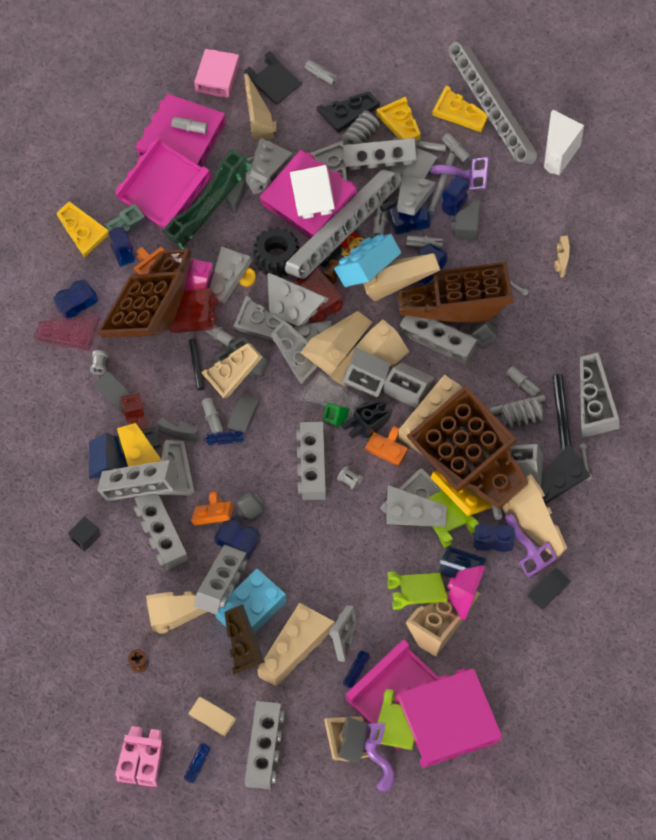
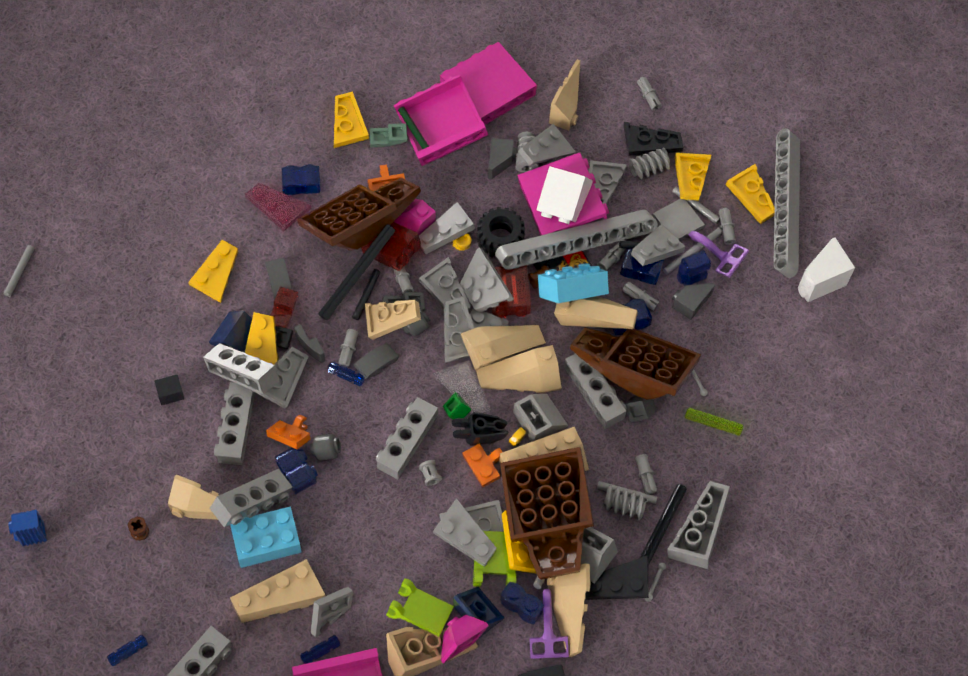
camera: 25 degrees right, 0 degrees up
(44, 713) = (27, 527): none -> blue brick
(53, 416) = (215, 271): none -> yellow wing
(99, 362) = (283, 246): light grey bush -> none
(121, 246) = (368, 154): clear blue brick -> none
(143, 751) = (82, 615): bright pink hips -> none
(144, 204) = (415, 131): none -> dark green bar
(179, 349) = (356, 272): none -> black axle
(186, 224) = (438, 165): clear green arch -> none
(189, 125) = (498, 79): light grey axle -> none
(212, 716) = (167, 616): tan slope -> none
(217, 73) = (555, 46): bright pink brick -> none
(244, 643) = (232, 571): dark brown wing -> none
(274, 80) = (603, 79): black flag -> none
(352, 150) = (679, 203): light grey brick -> none
(366, 373) = (505, 385): light grey slope -> none
(401, 409) = (517, 437): none -> yellow tile
(548, 310) = (714, 421): none -> clear neon green axle
(562, 256) = (754, 386): tan slope -> none

